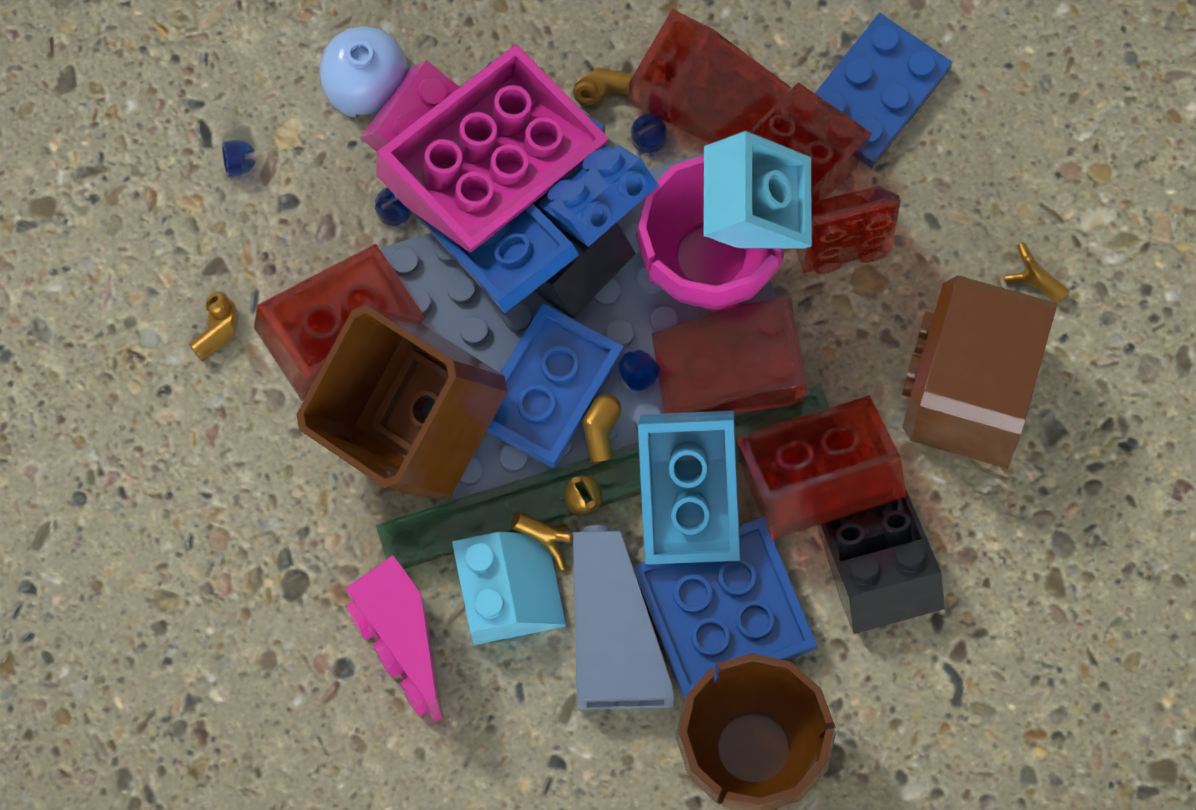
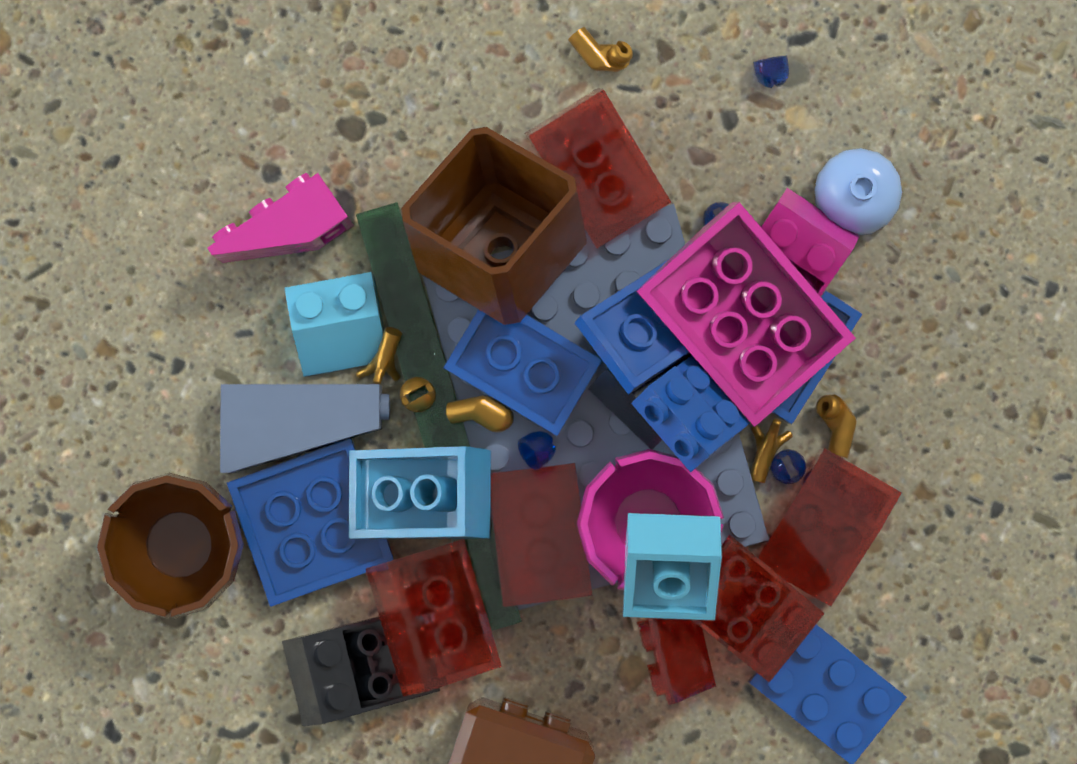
camera: 90 degrees right, 15 degrees up
(649, 157) = (766, 449): none -> pearl gold bar

